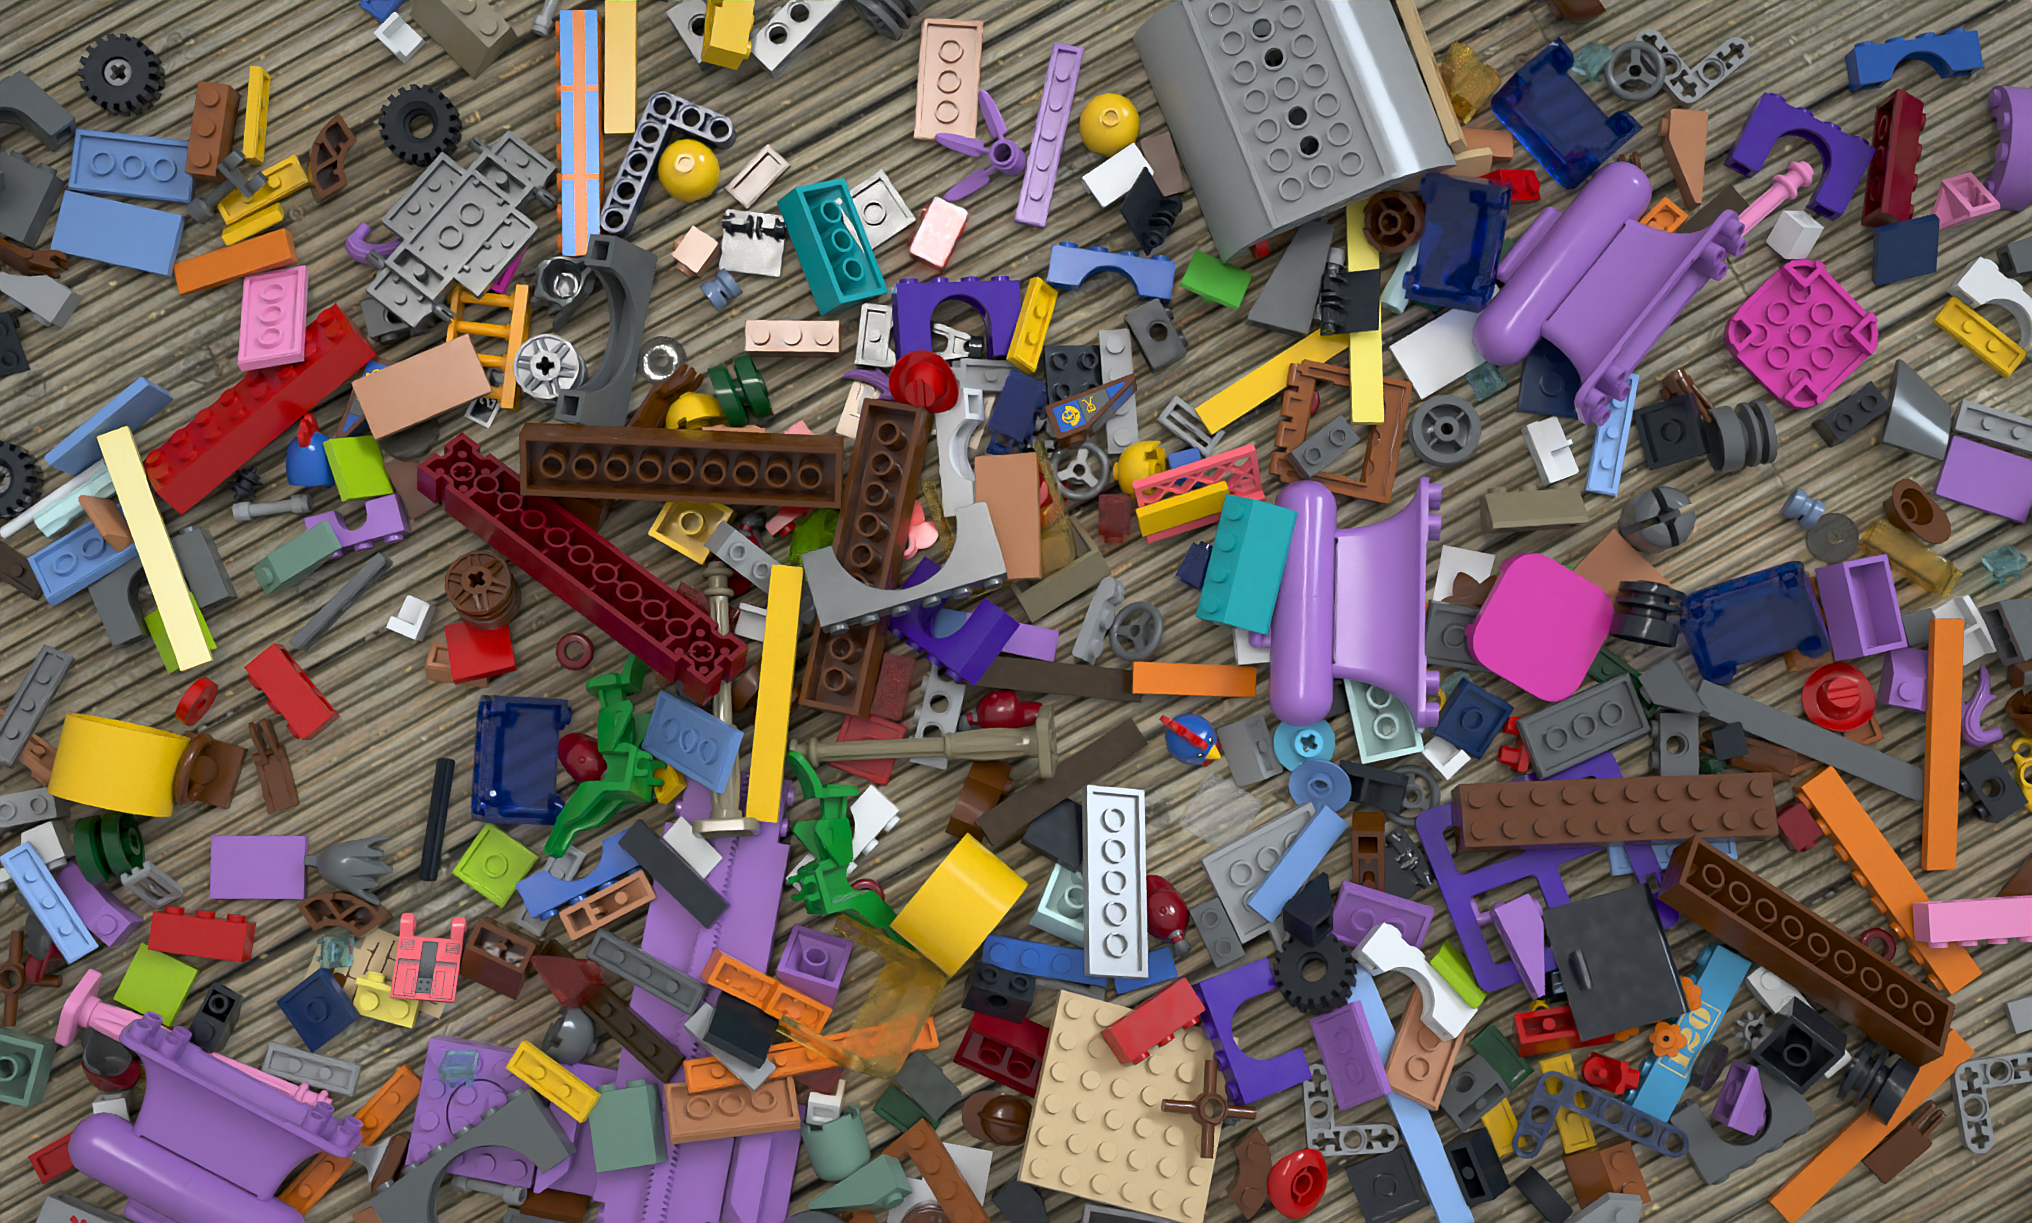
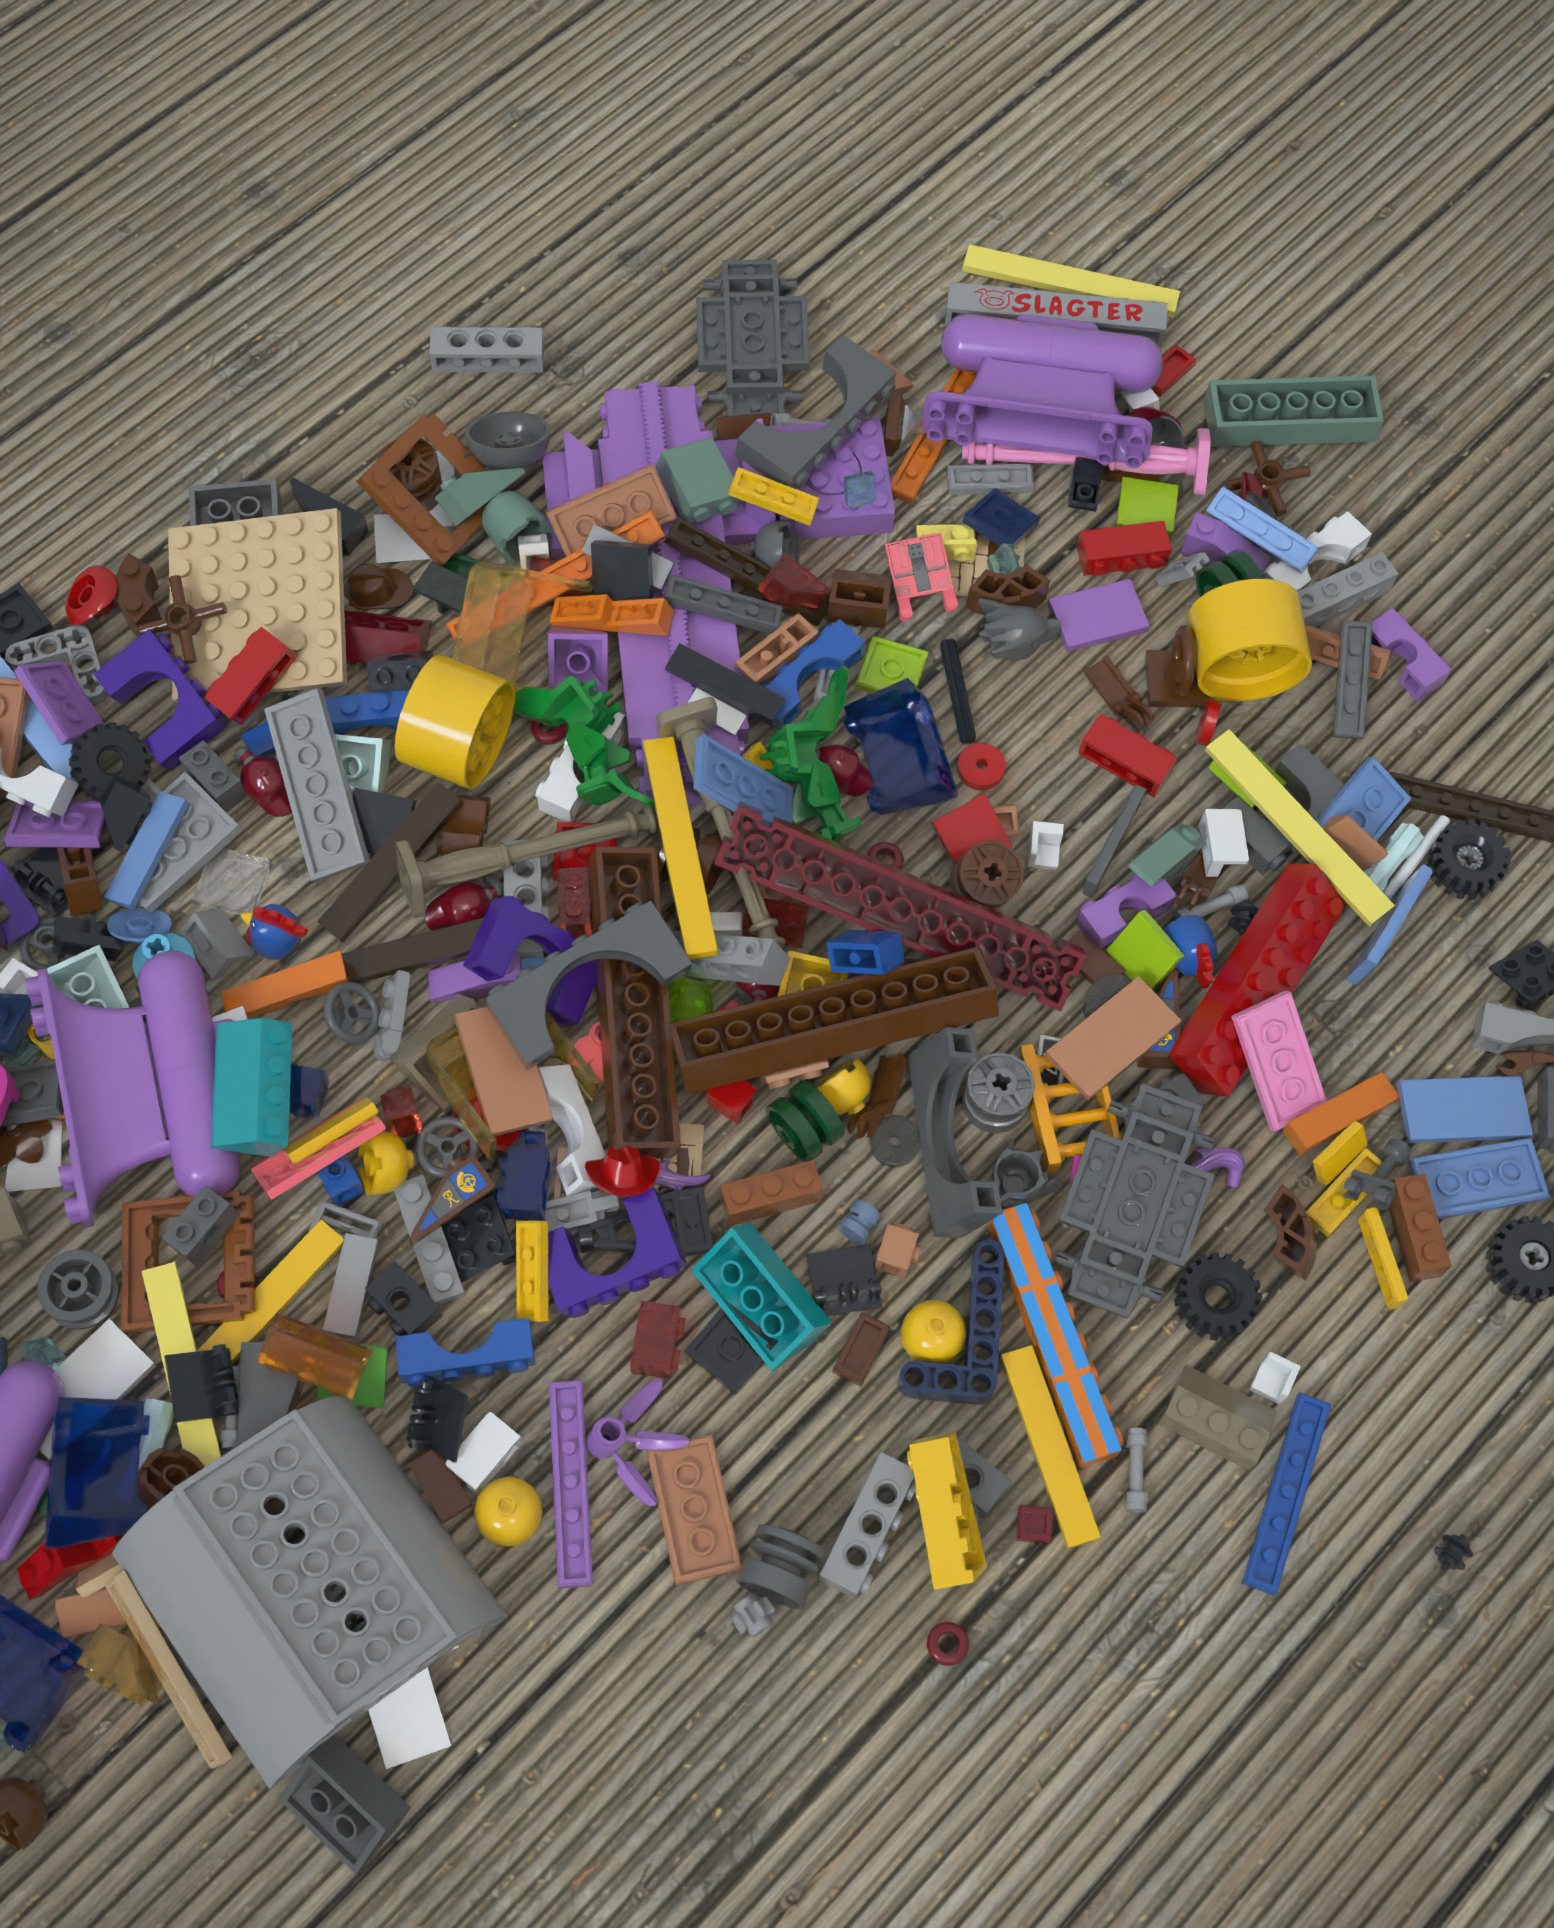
camera: 155 degrees right, 20 degrees down
(233, 564) = (1224, 839): none -> white panel
(271, 536) = (1196, 881): none -> reddish brown arm
(429, 726) = (981, 778): none -> red piece
(629, 525) = (865, 952): none -> blue brick
(1198, 366) = (349, 1286): none -> light grey tile
(1245, 292) = (314, 1355): none -> clear orange brick

